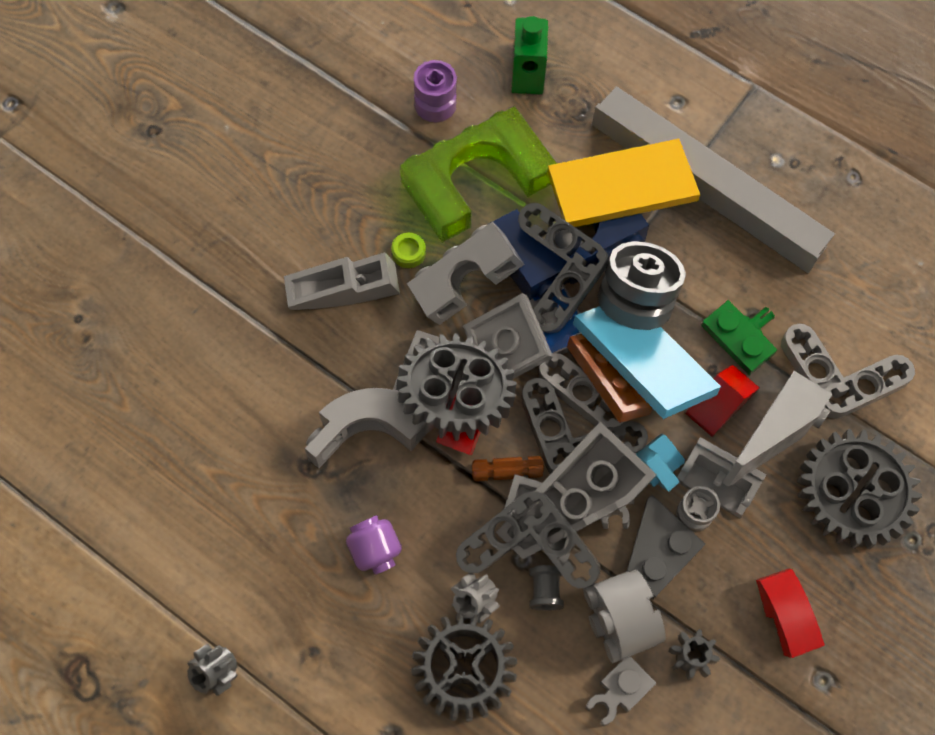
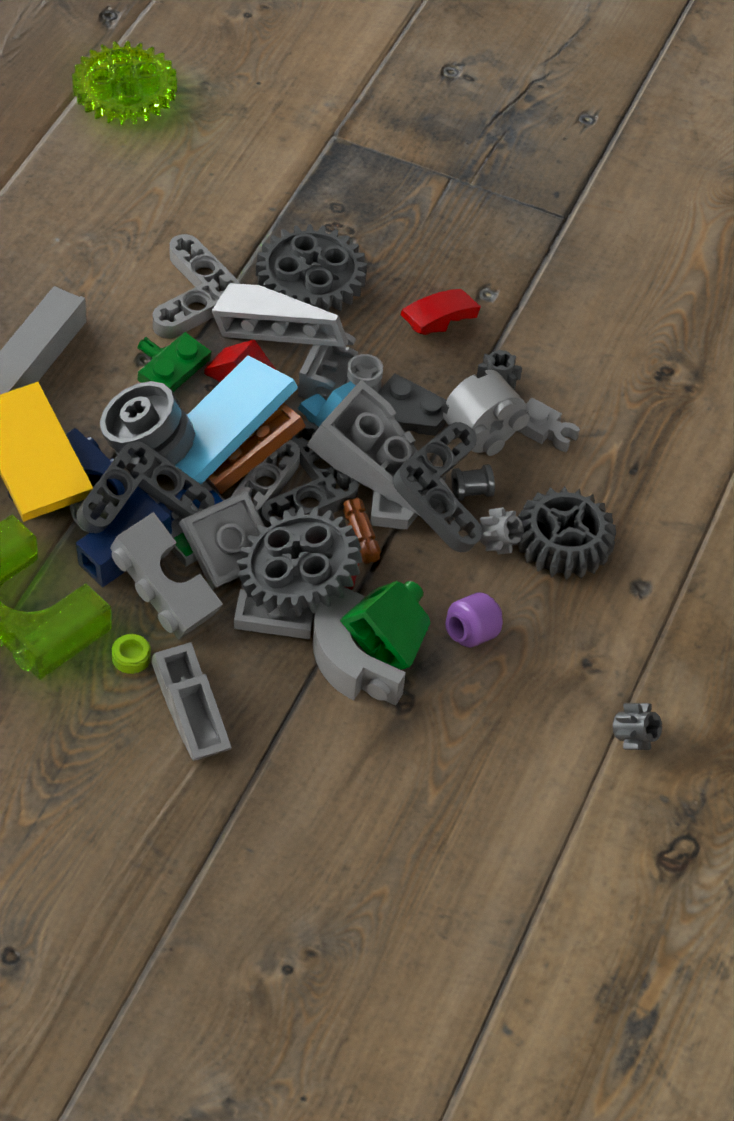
camera: 105 degrees left, 15 degrees down
(377, 457) = (390, 623): none -> green torso

